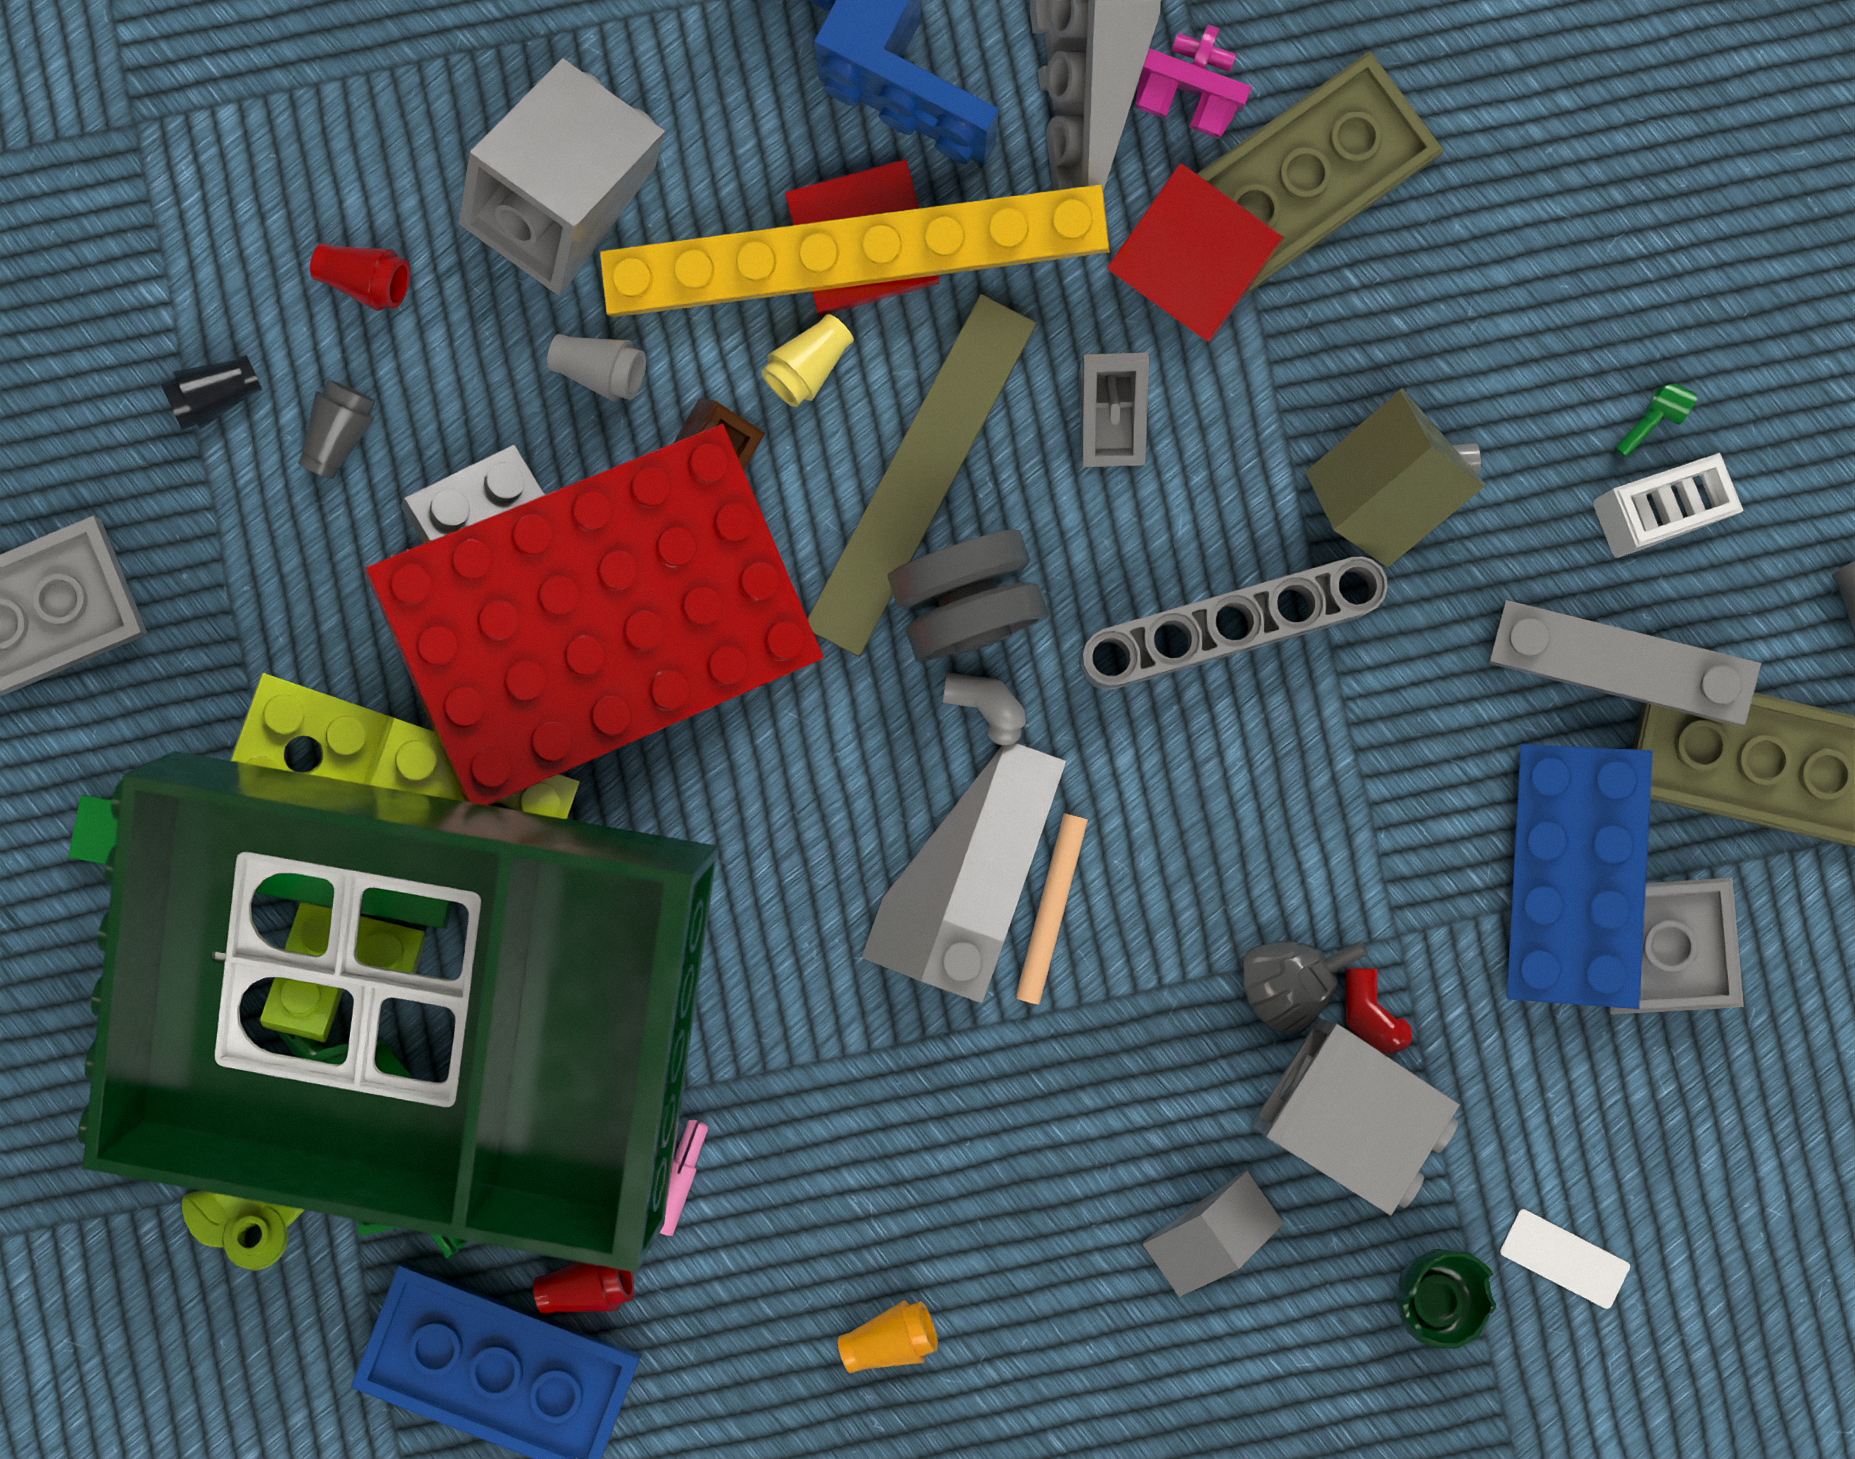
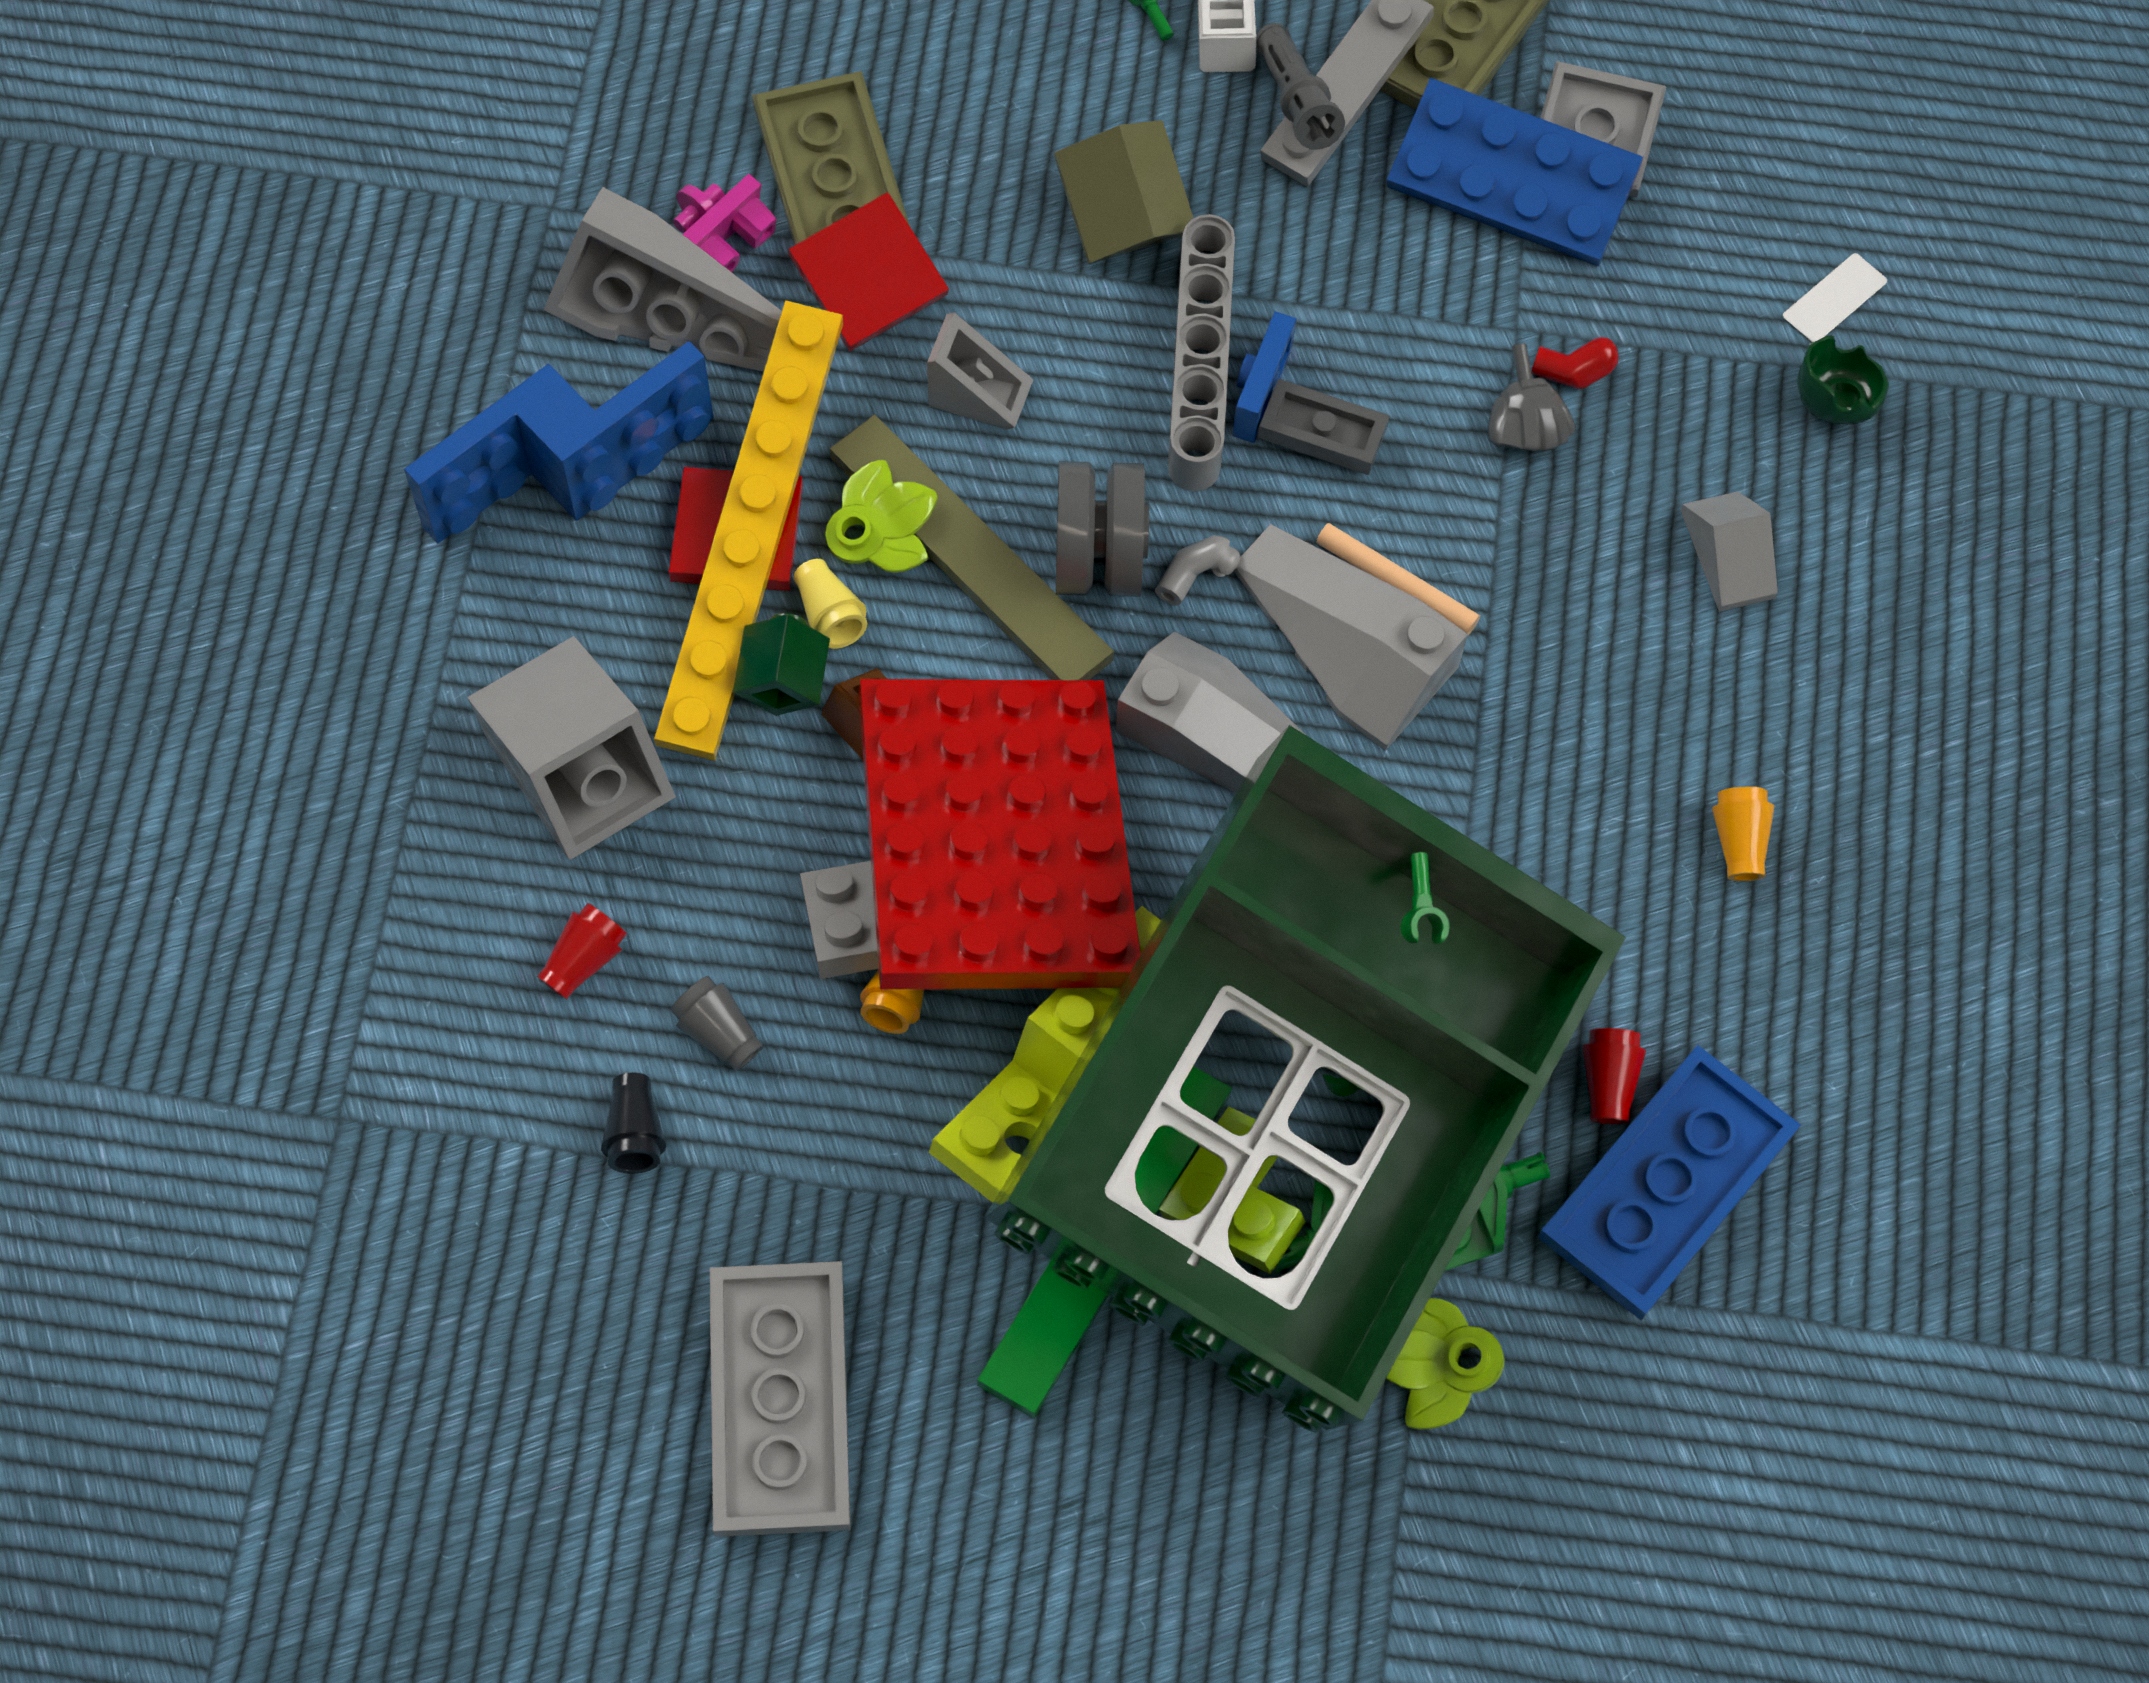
camera: 75 degrees left, 20 degrees down
(561, 1068) = (1423, 905): none -> green hand
(602, 365) = (757, 775): light grey cone -> none
(716, 341) = (781, 664): none -> dark green brick
(822, 788) = (1199, 711): none -> light grey wedge
(922, 380) = (890, 520): none -> lime plate
(1193, 777) = (1323, 426): none -> dark grey plate
(1226, 694) = (1260, 375): none -> blue plate
(1357, 1116) = (1659, 396): light grey slope -> none
(1572, 624) = (1303, 95): none -> dark grey pin

